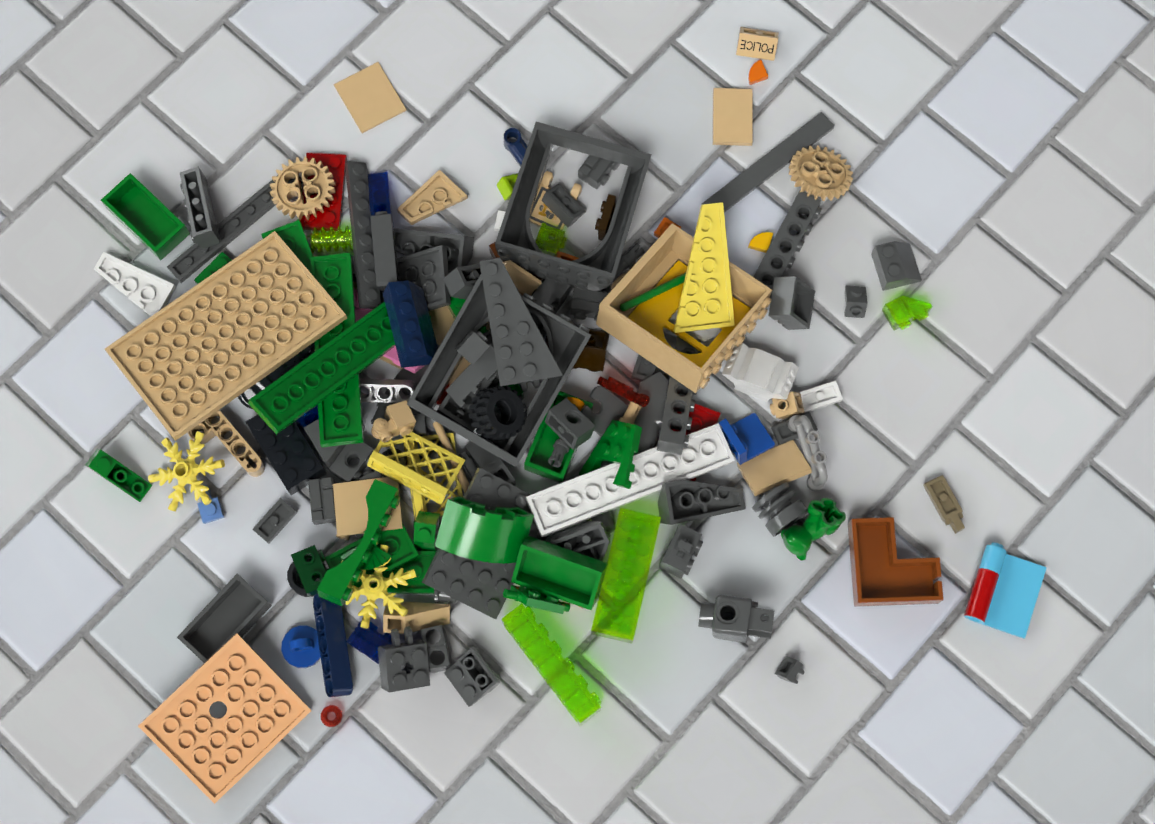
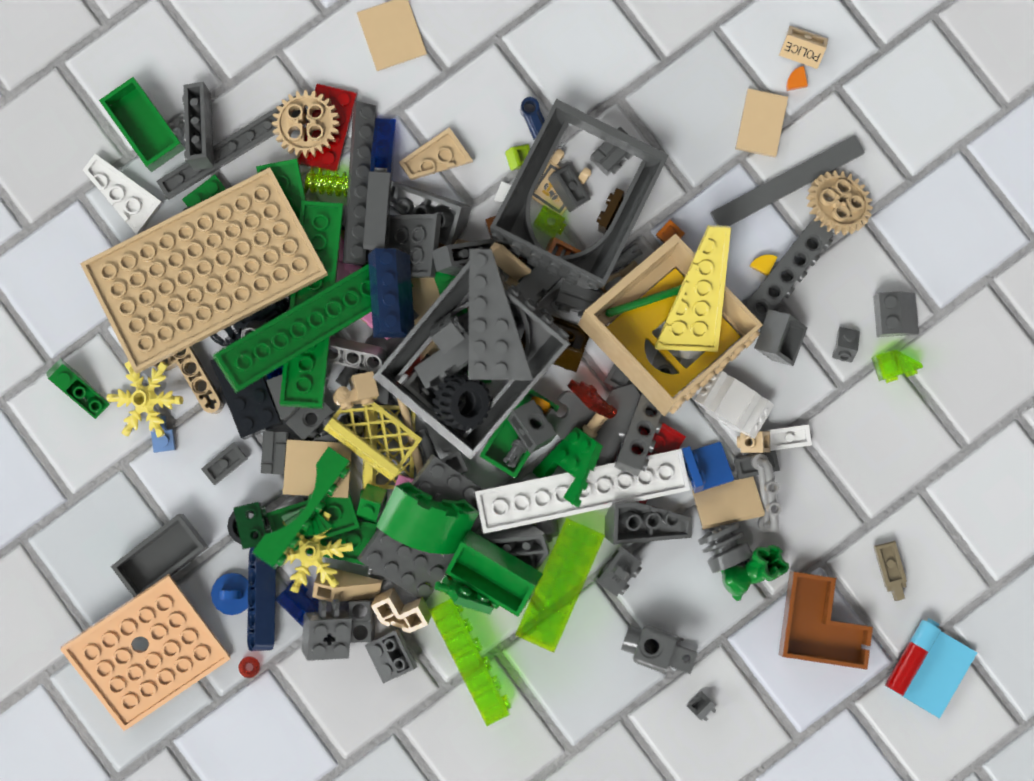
camera: 10 degrees right, 10 degrees up
(465, 632) = (393, 612): none -> tan brick

